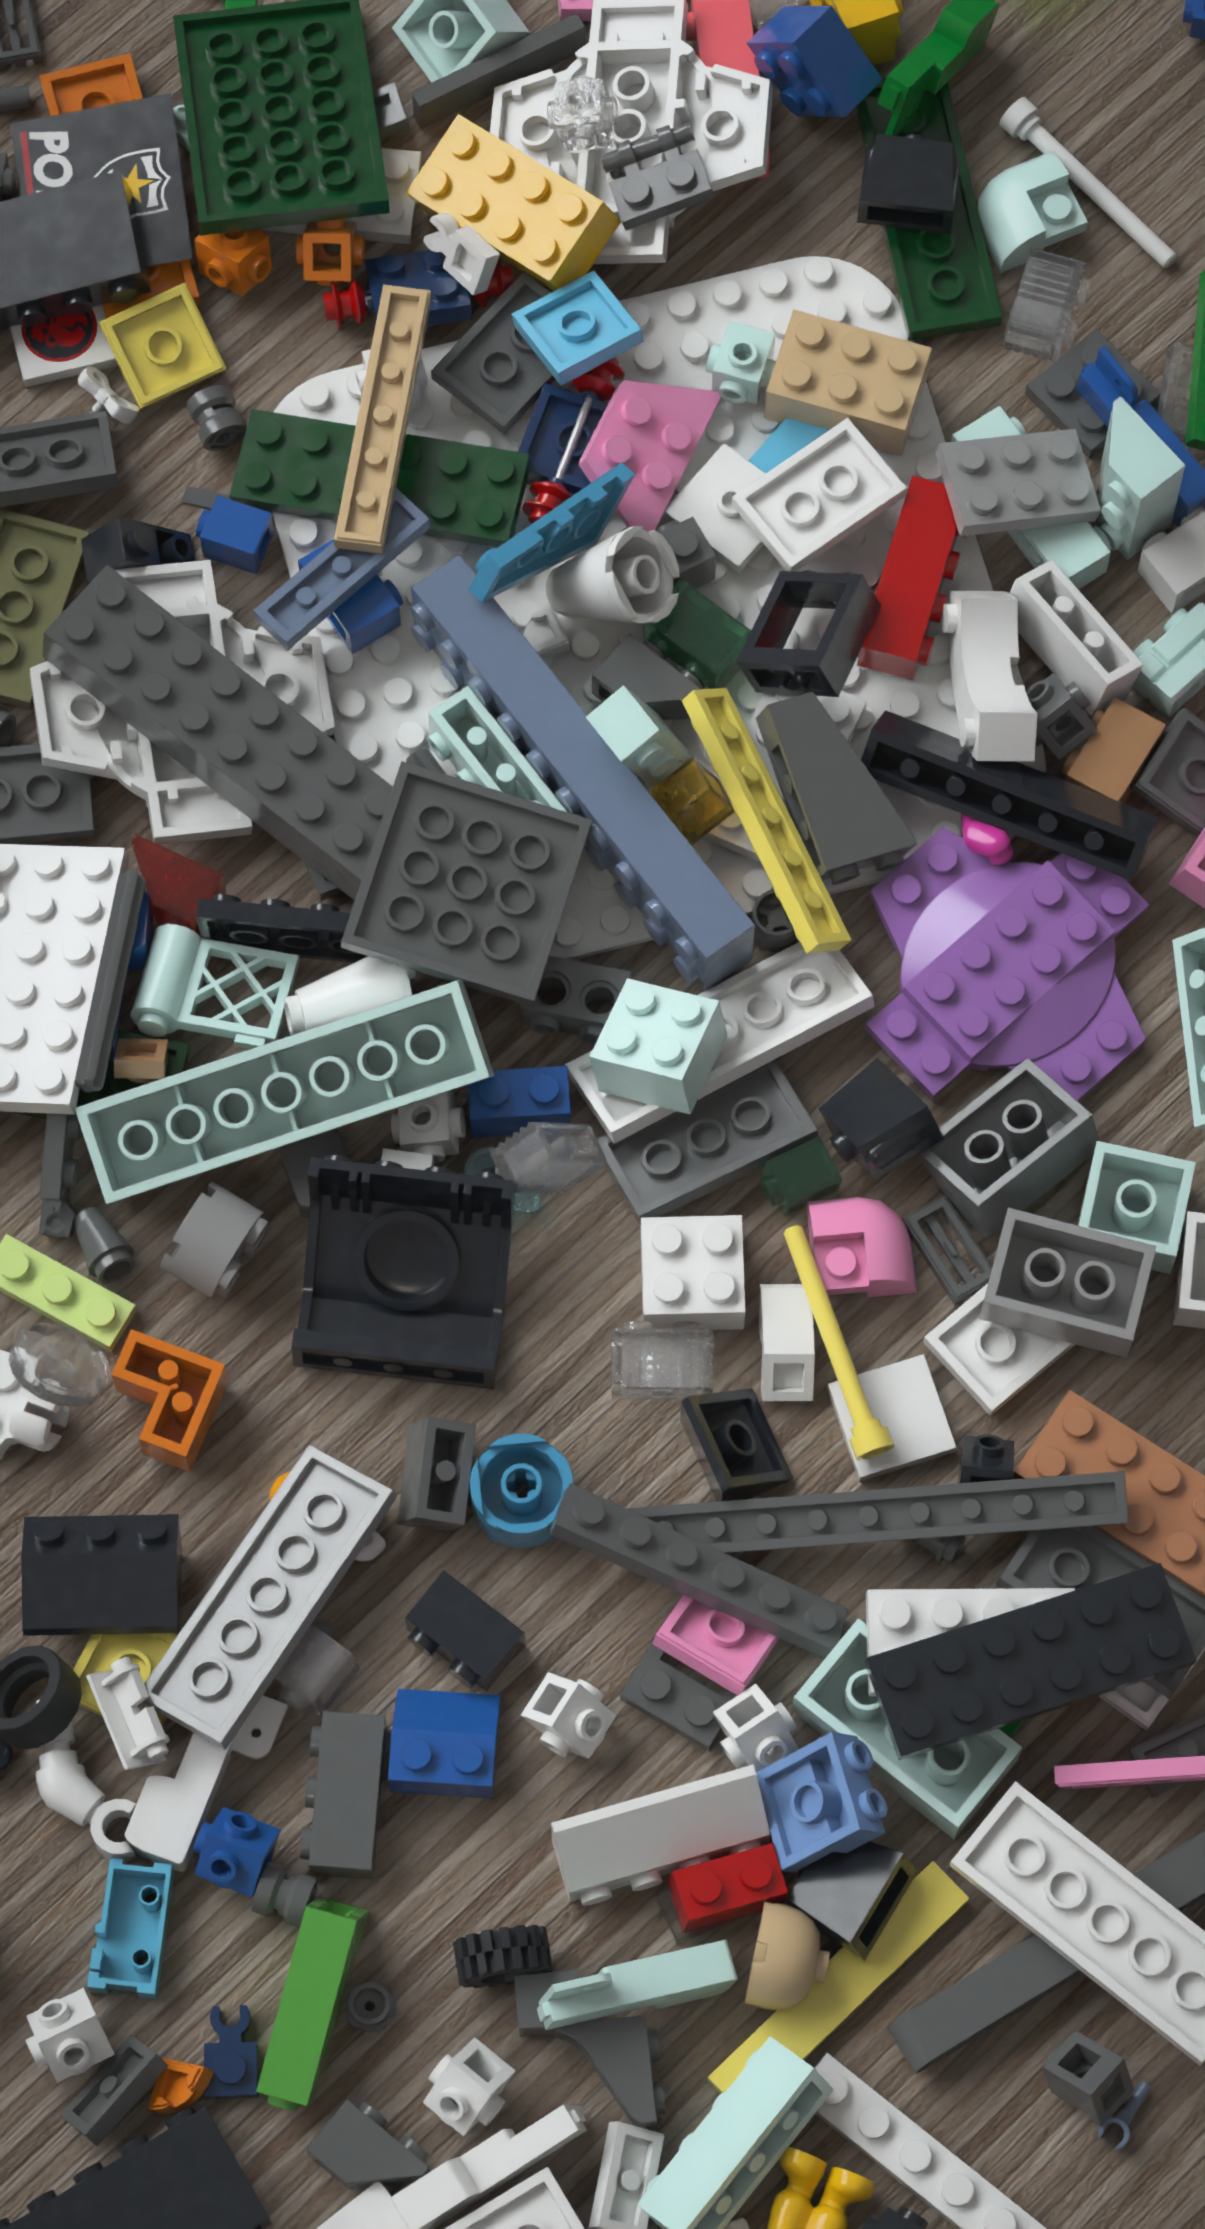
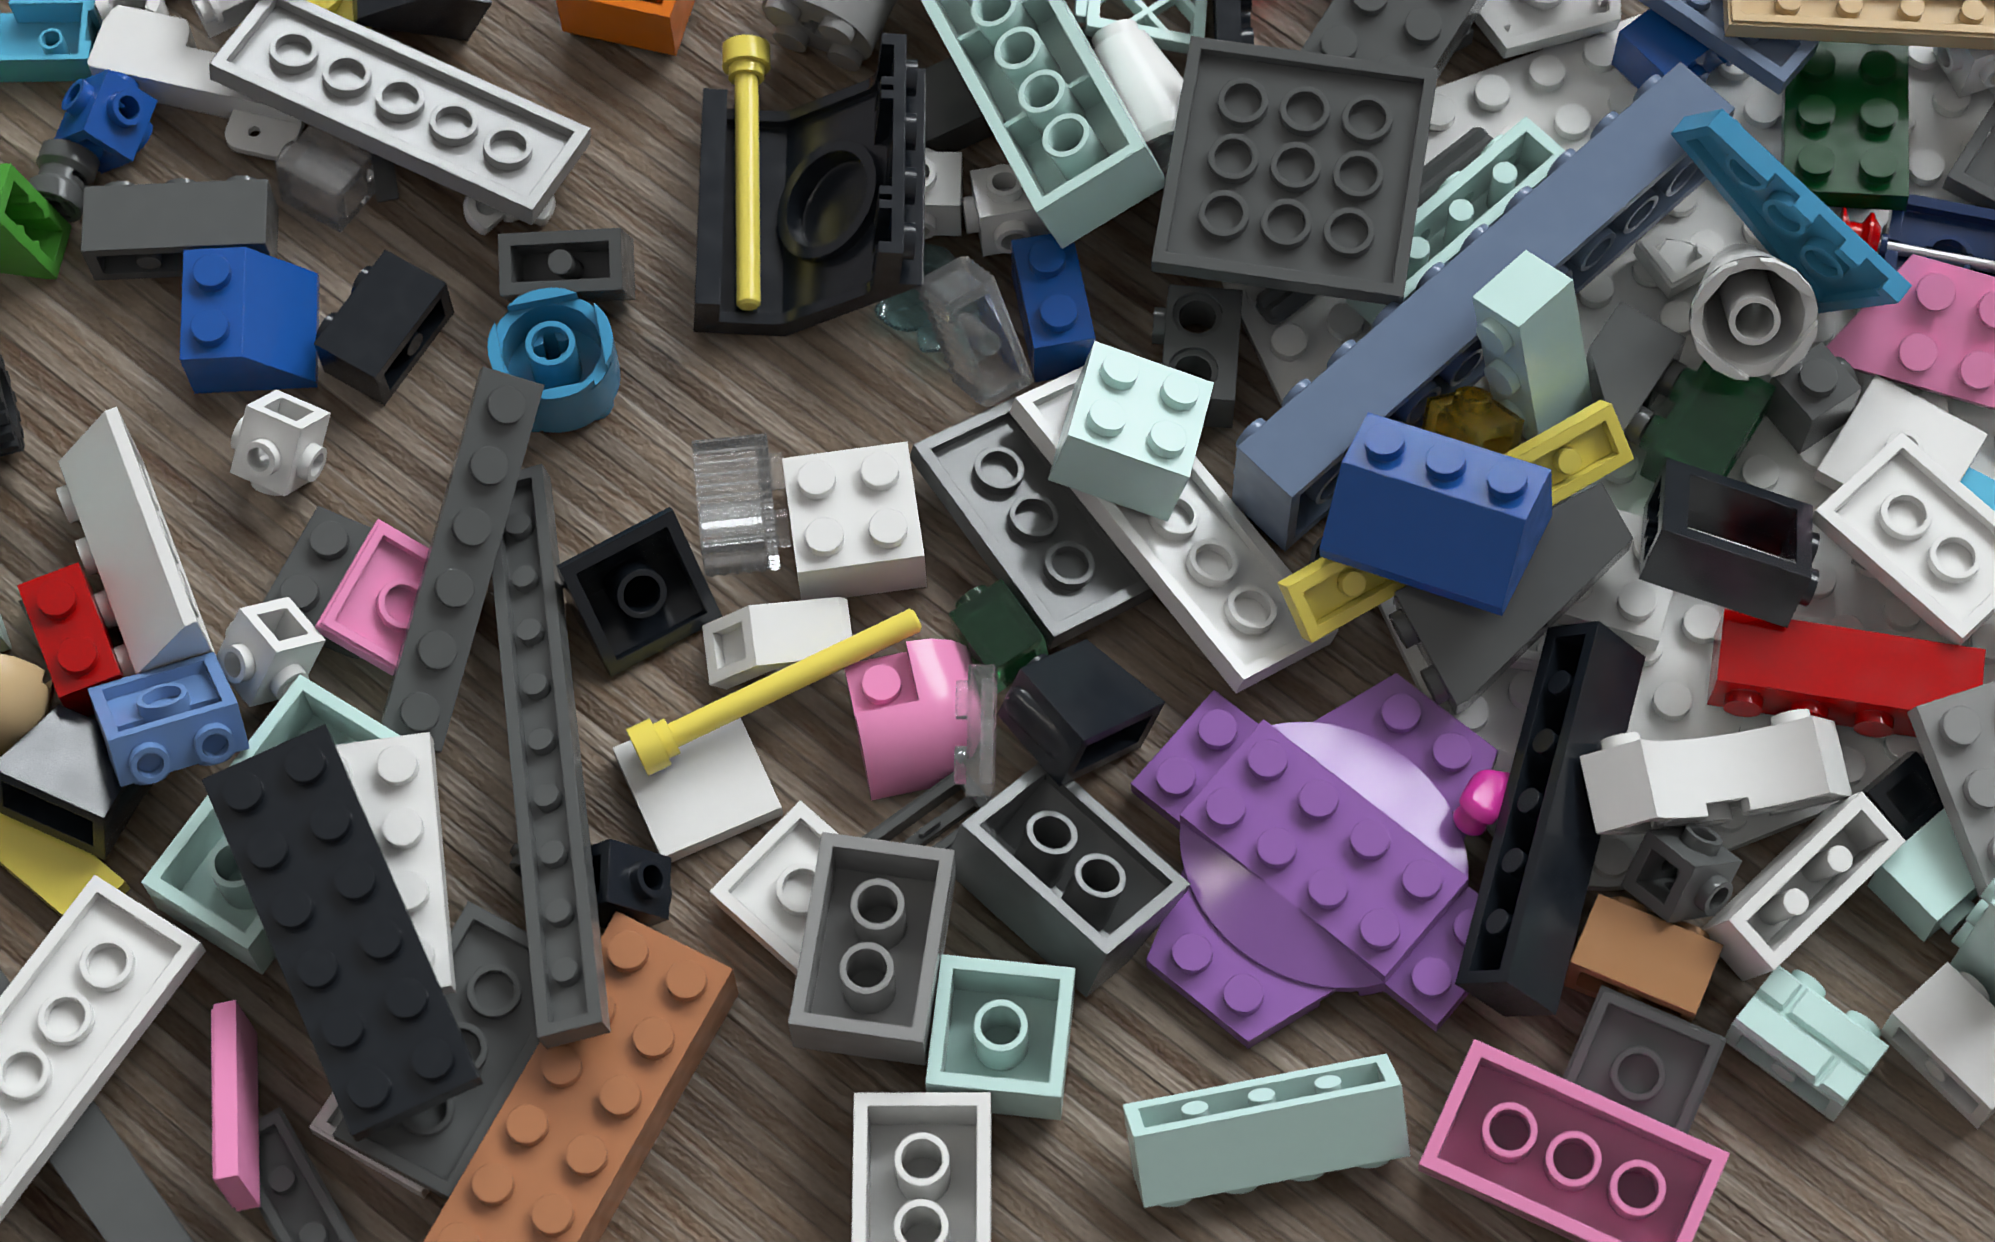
camera: 85 degrees right, 5 degrees down
(264, 1317) = (746, 63): none -> light yellow piece
(785, 822) = (1437, 513): none -> blue slope
(881, 1186) = (978, 705): none -> clear plate
(1001, 558) = (1906, 794): none -> black tile

